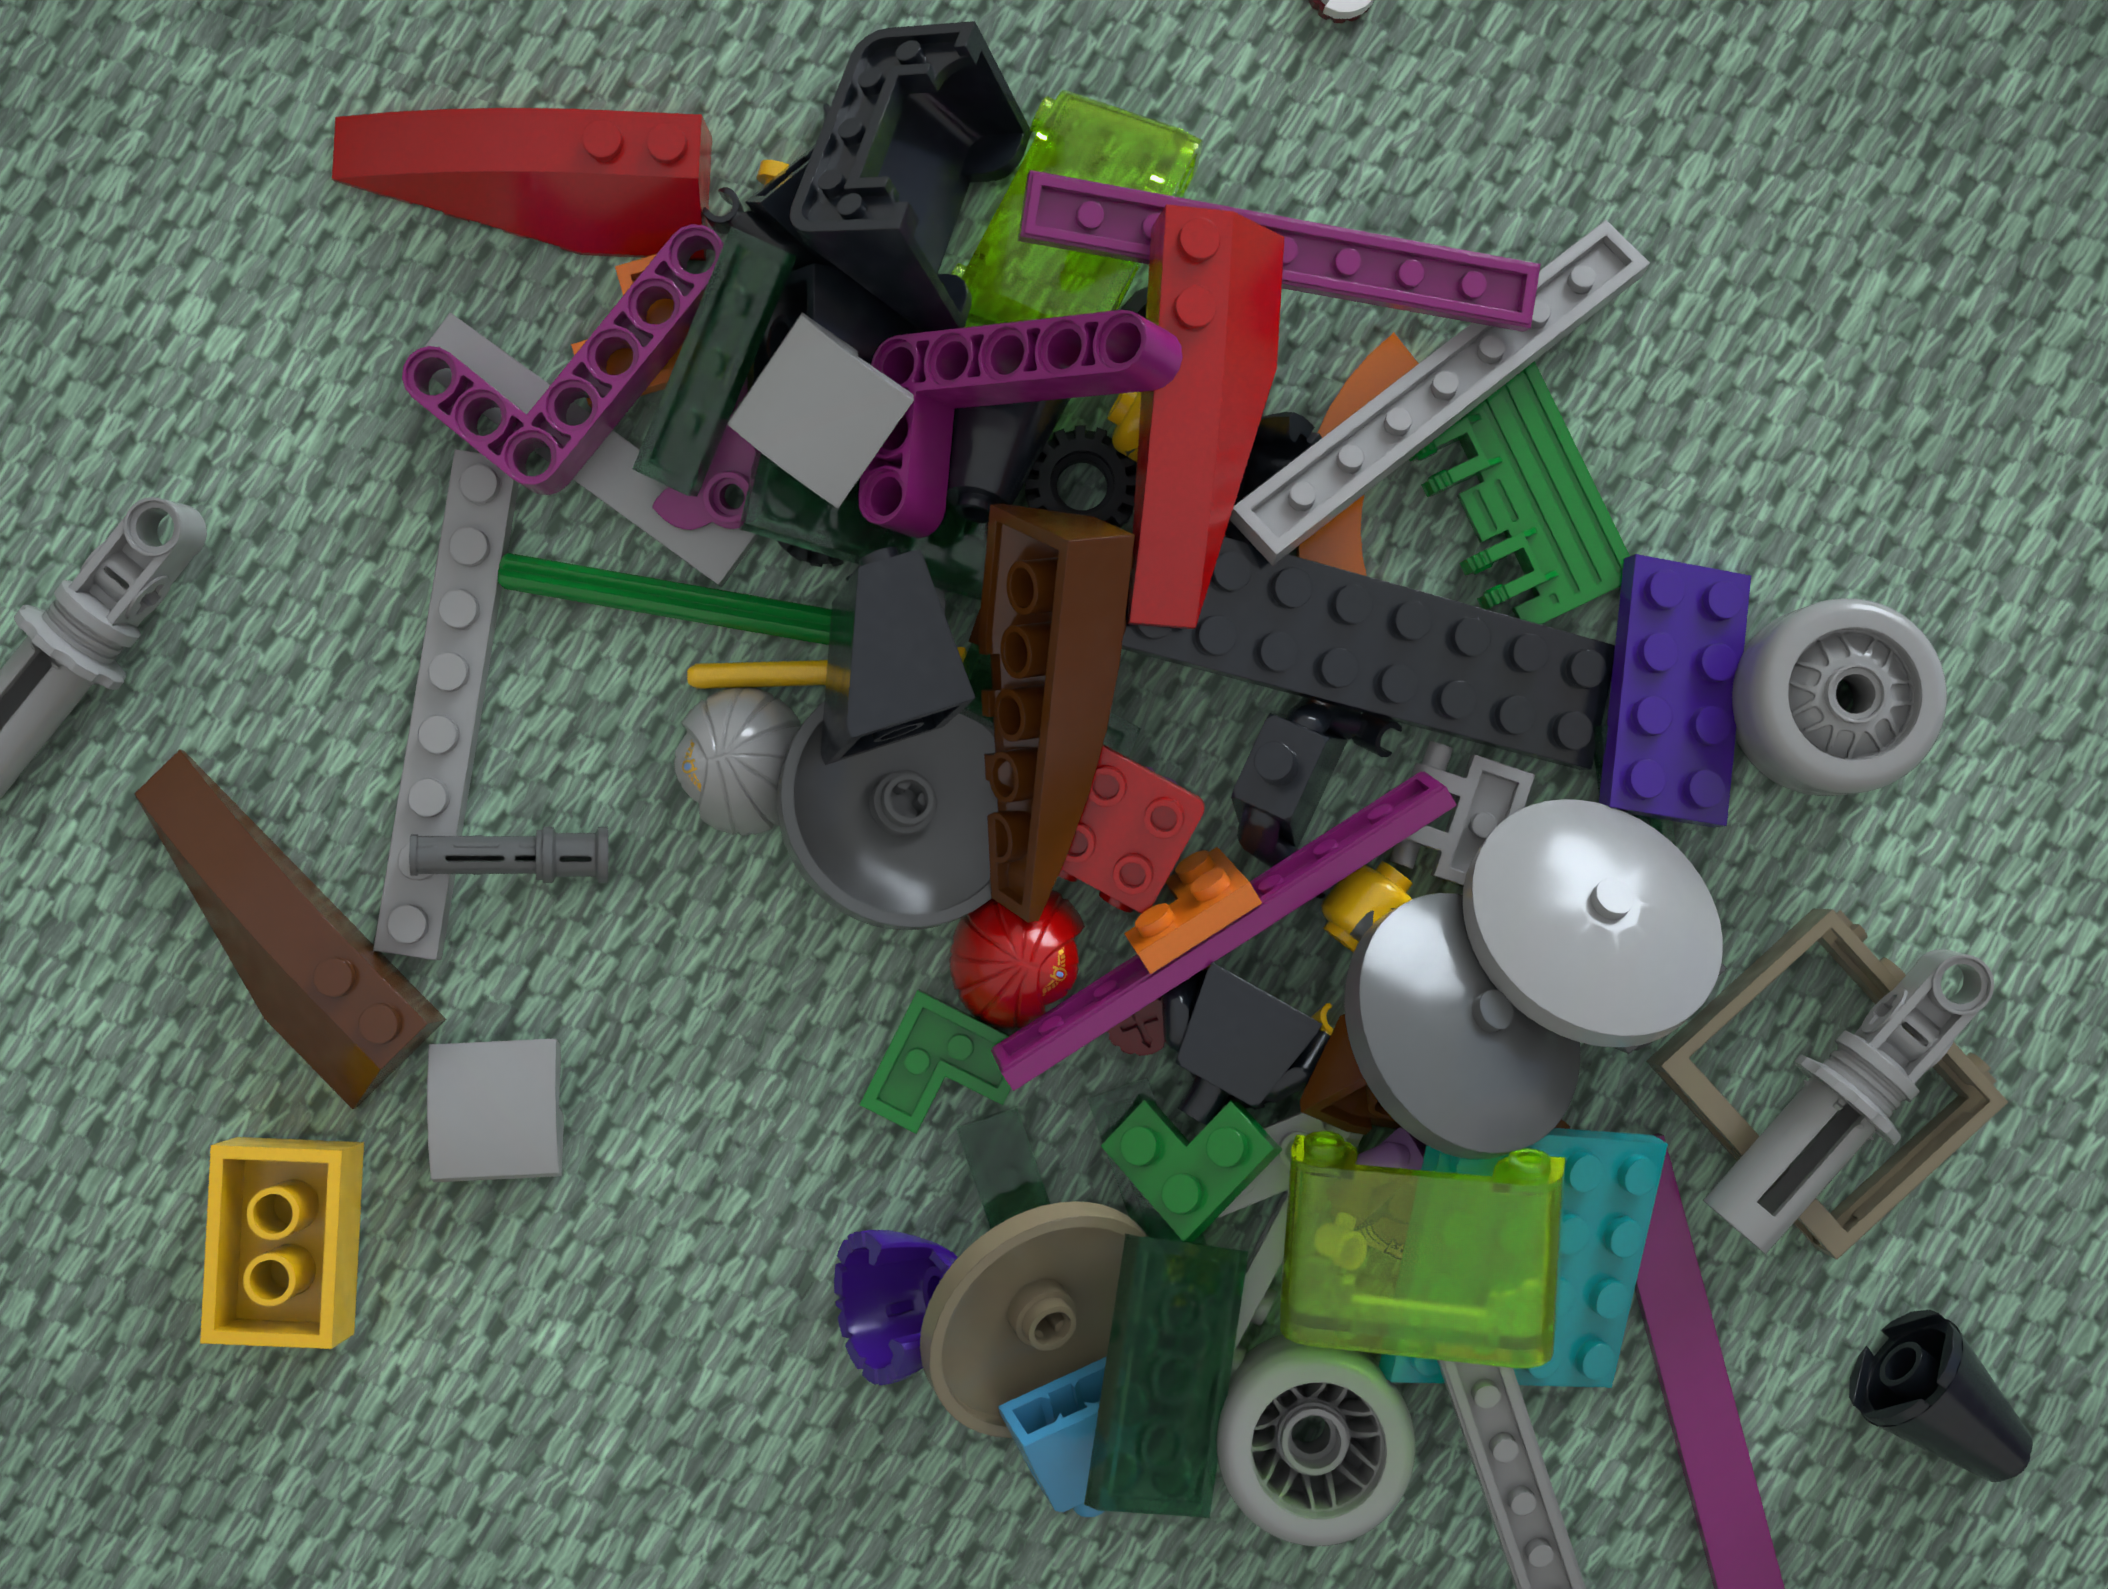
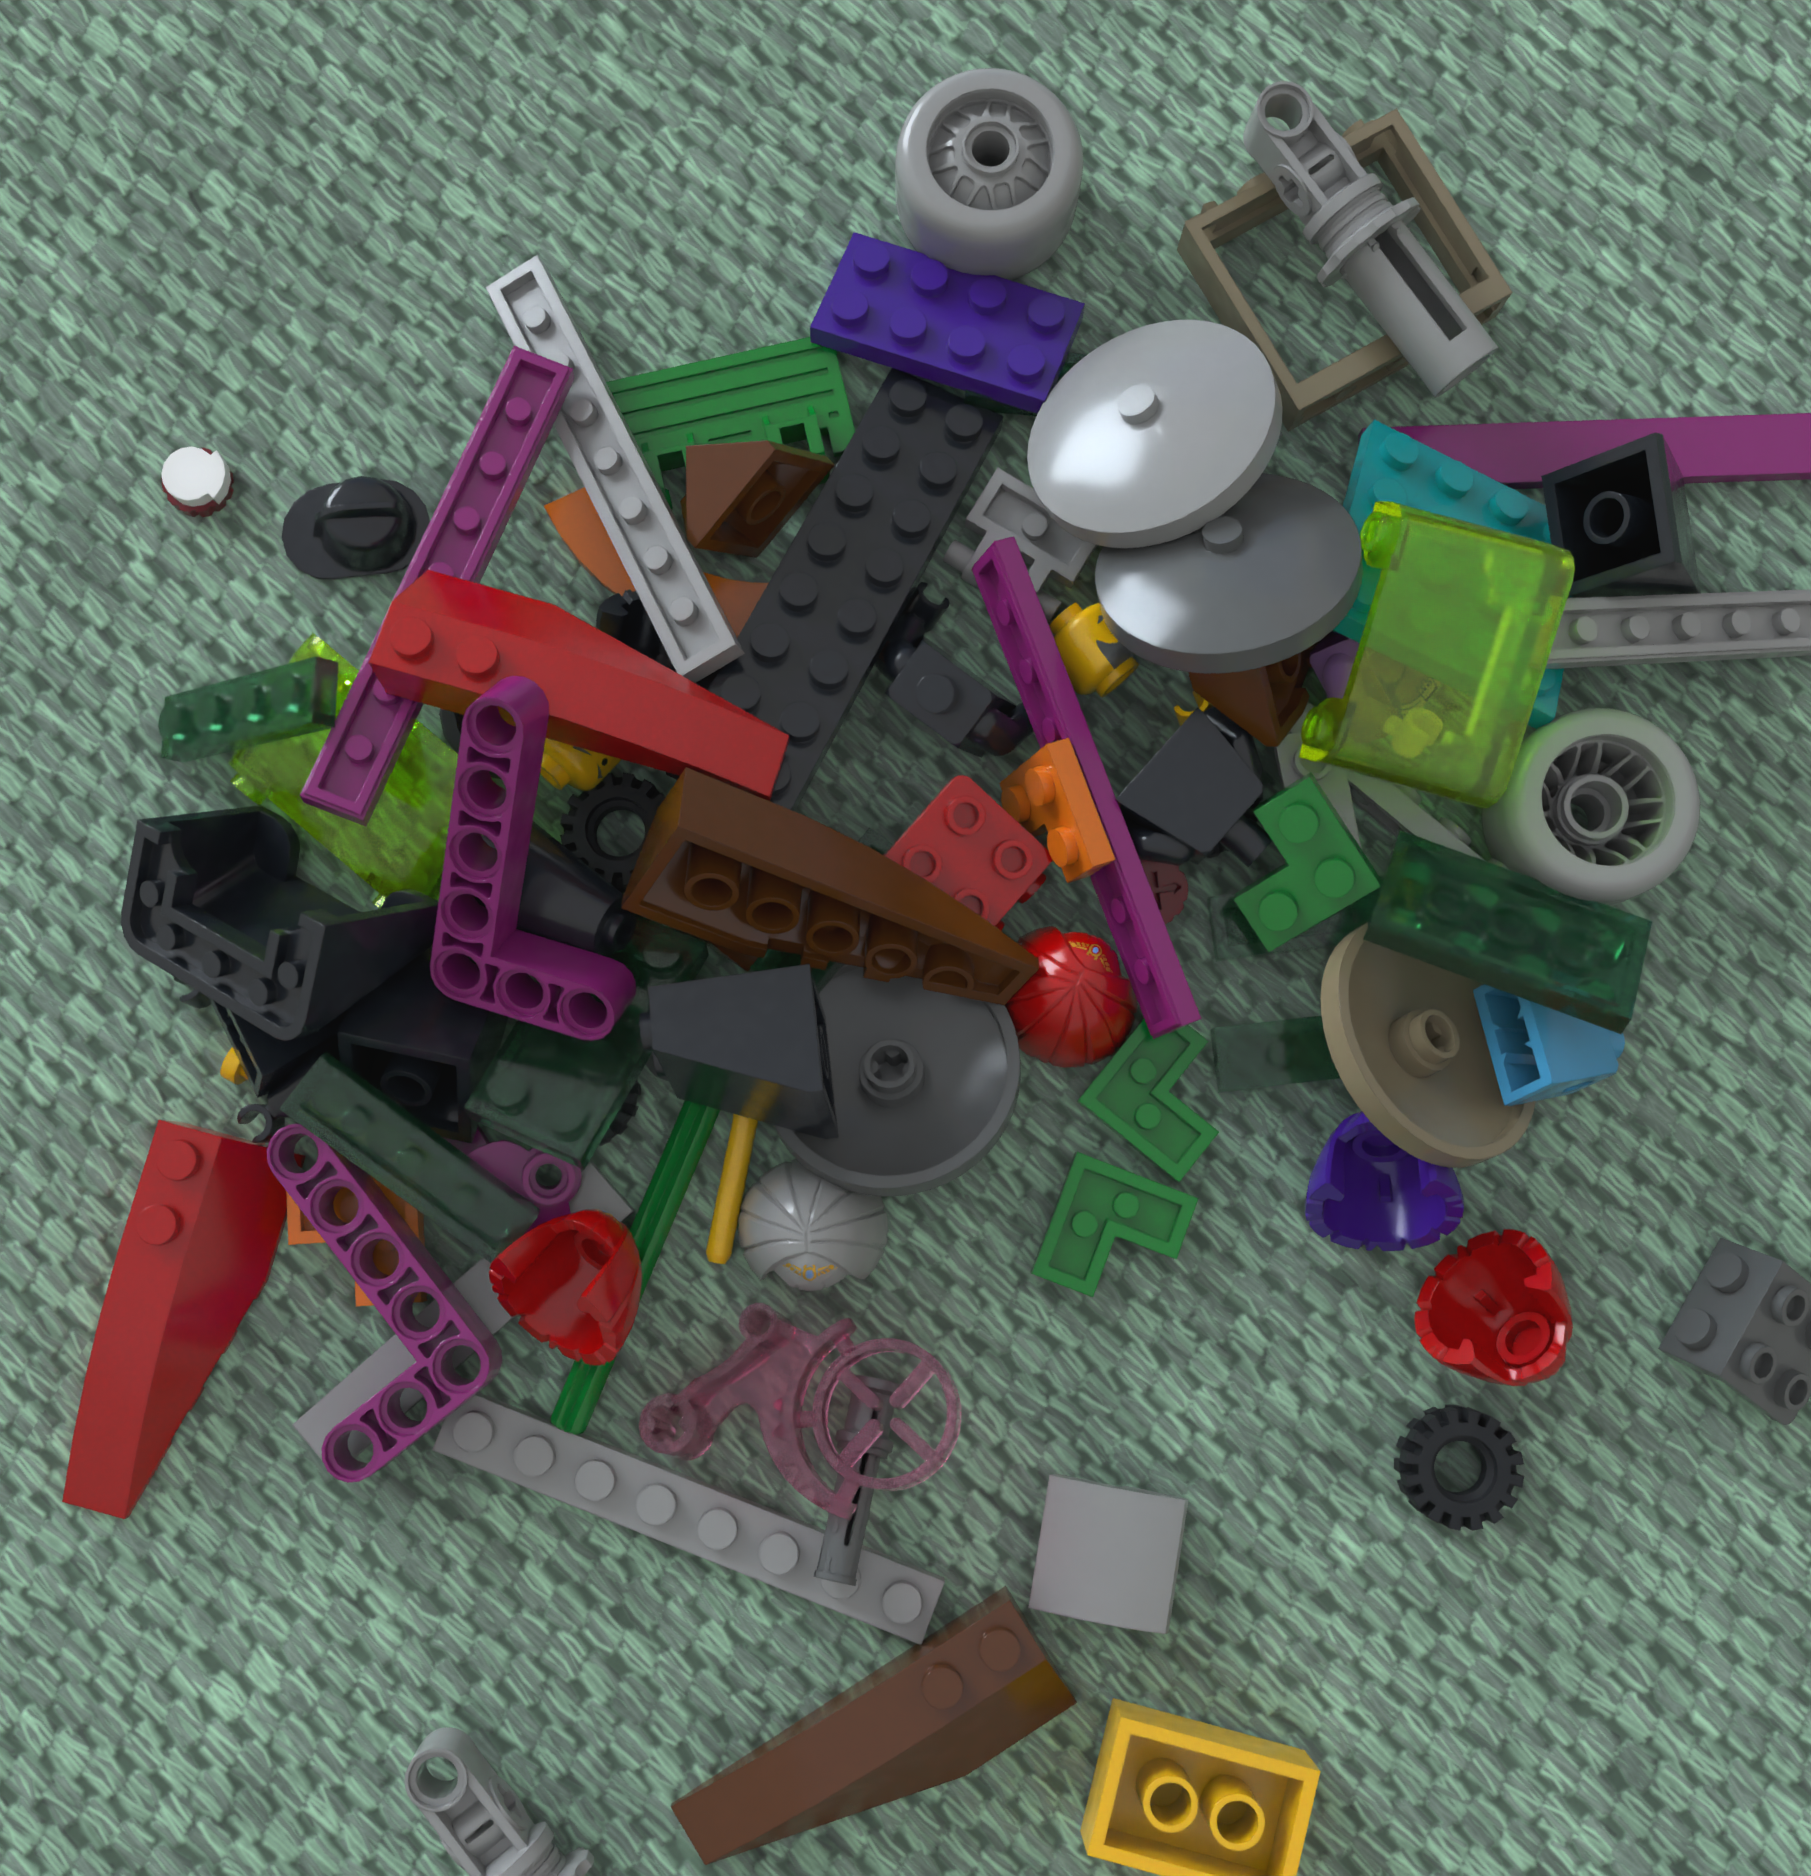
camera: 80 degrees left, 5 degrees down
(588, 755) = (773, 1377): none -> clear pink piece
(624, 1461) = (1497, 1473): none -> black tyre
(633, 545) = (573, 1284): none -> red hair
(799, 1436) = (1497, 1310): none -> red hair
(820, 410) = (486, 1055): light grey slope -> none
(822, 1034) = (1105, 1204): none -> green plate
(1113, 98) = (250, 710): none -> clear green plate
(1330, 153) = (354, 528): none -> black piece
(1441, 528) = (745, 493): none -> reddish brown slope
(1607, 1417) = (1624, 522): none -> black slope
(1940, 1397) = (1654, 233): black cone -> none

